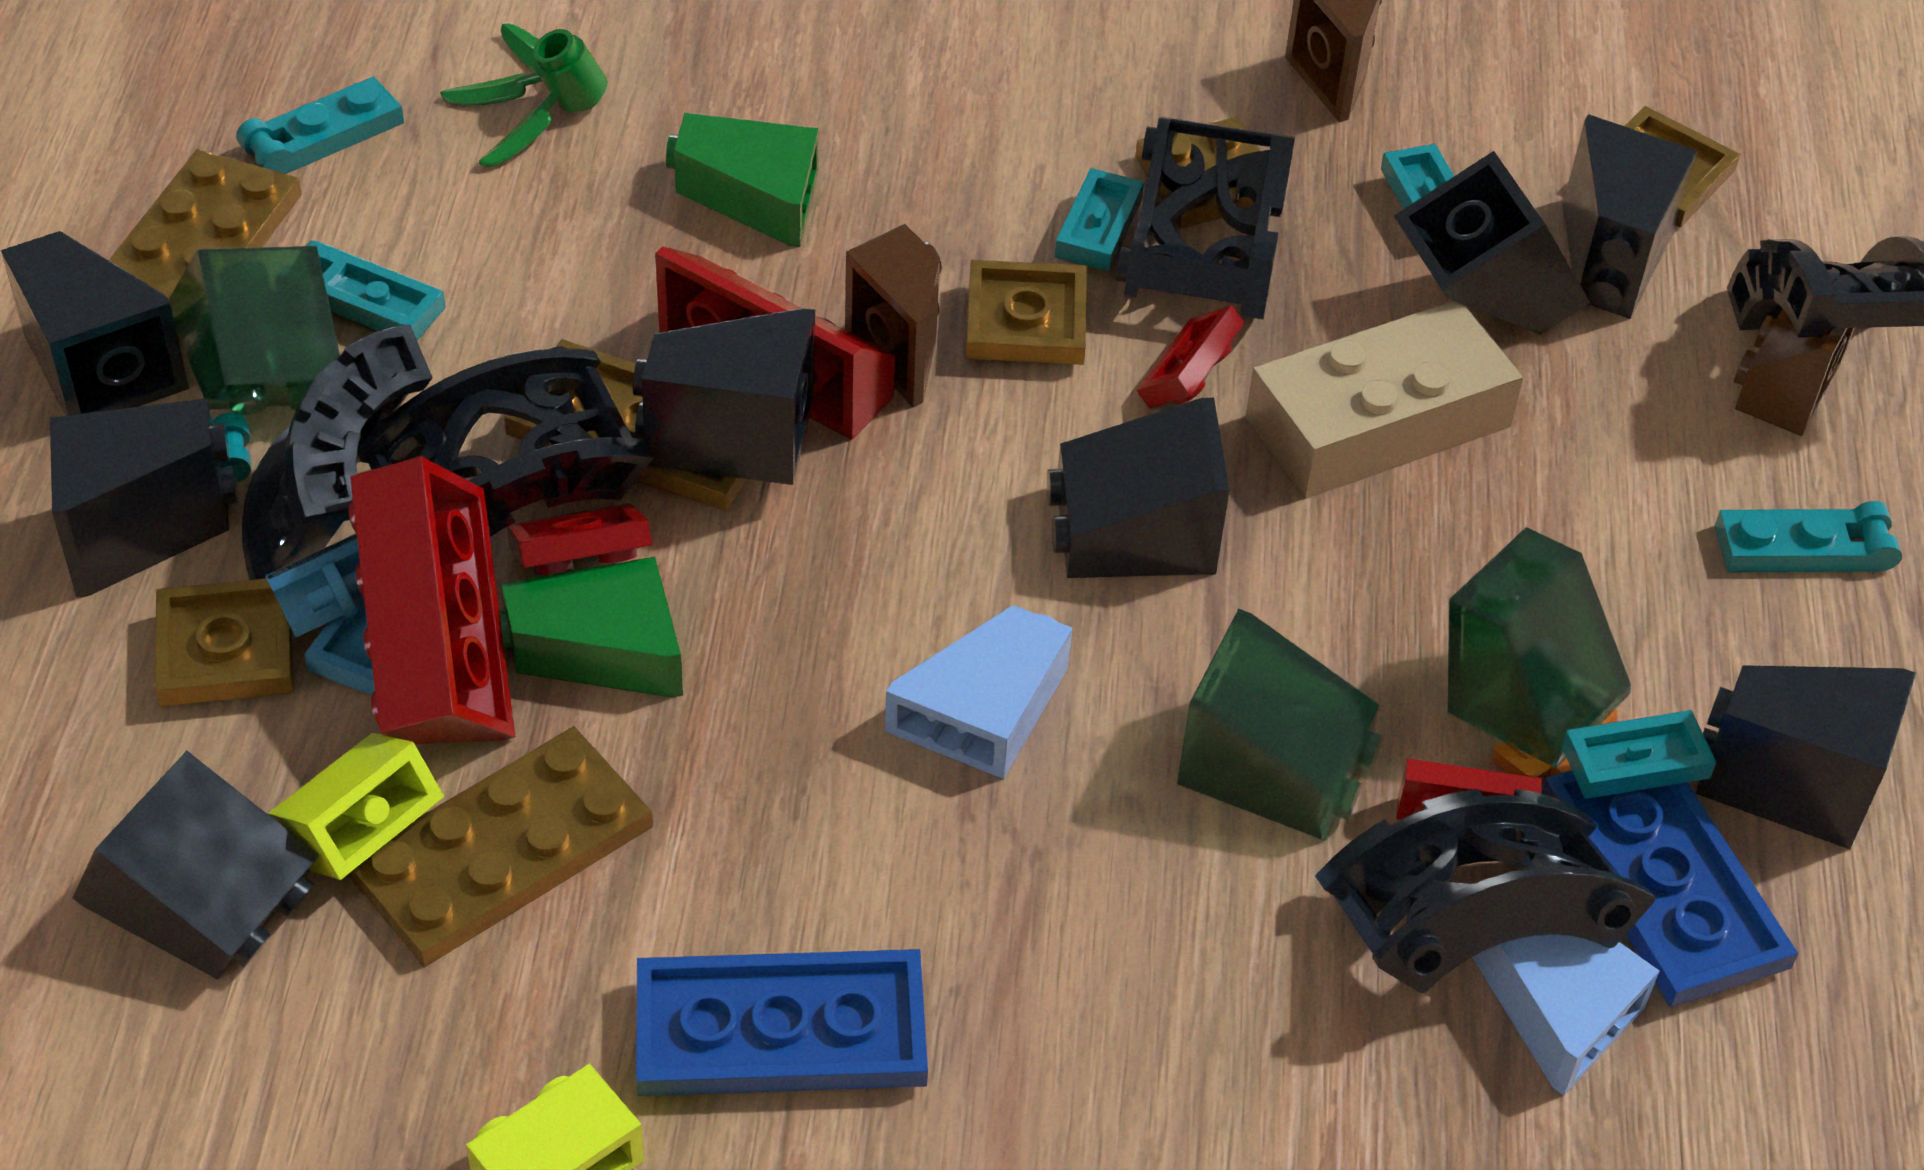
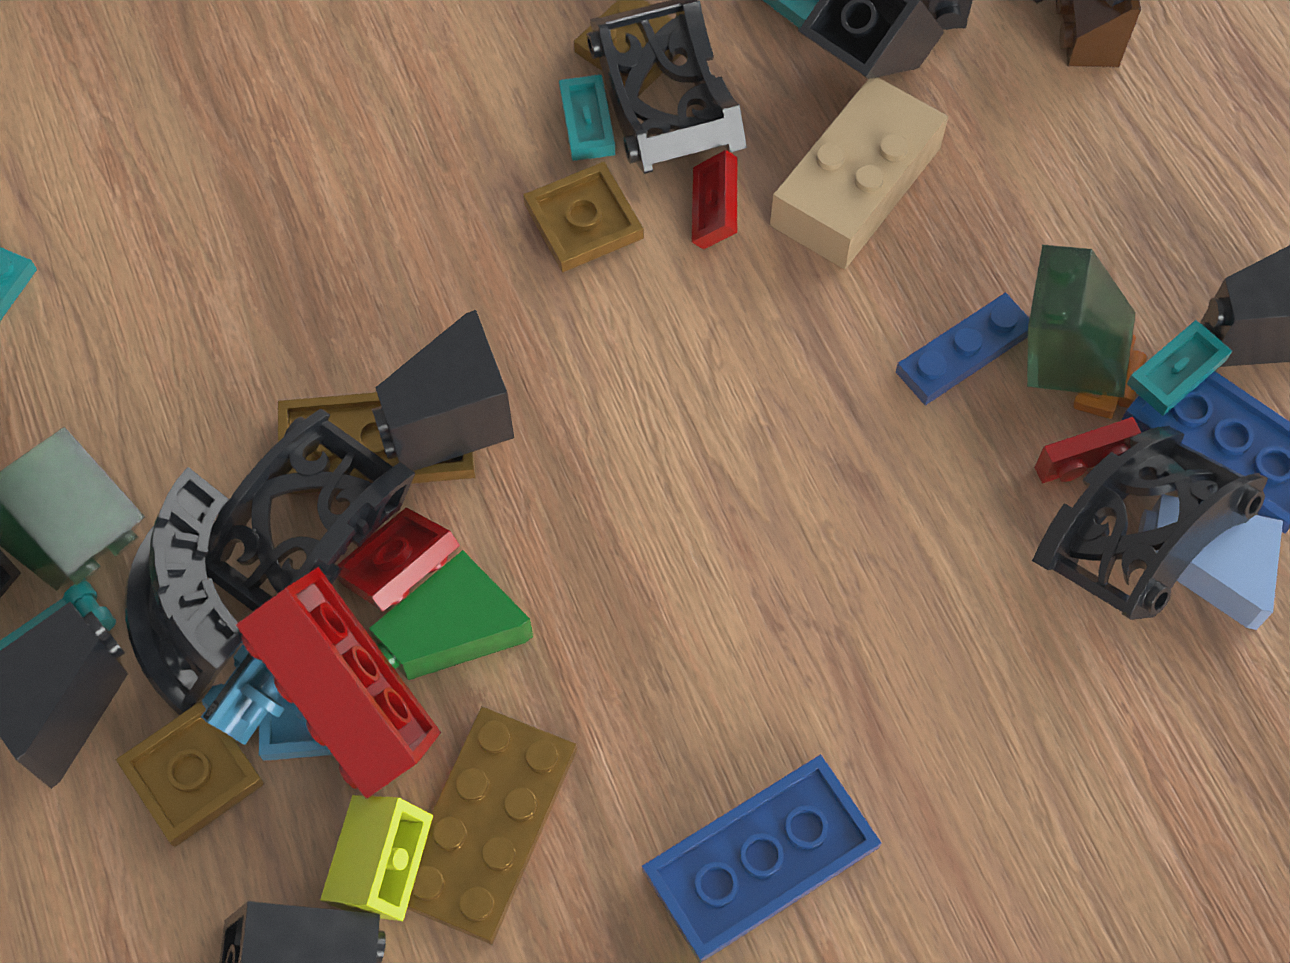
camera: 25 degrees left, 15 degrees up
(376, 294) = (110, 429): teal plate -> none
(559, 62) = (132, 171): green plant -> none
(748, 171) = (321, 195): green slope -> none
(850, 374) = (397, 325): red slope -> none
(896, 304) = (504, 263): reddish brown slope -> none
(982, 690) = (741, 532): light blue slope -> none
(1142, 496) = (756, 327): black slope -> none
(1277, 731) = (949, 467): clear green slope -> none
(1376, 636) = (964, 349): none -> blue plate
(1808, 539) = (1169, 146): teal plate -> none

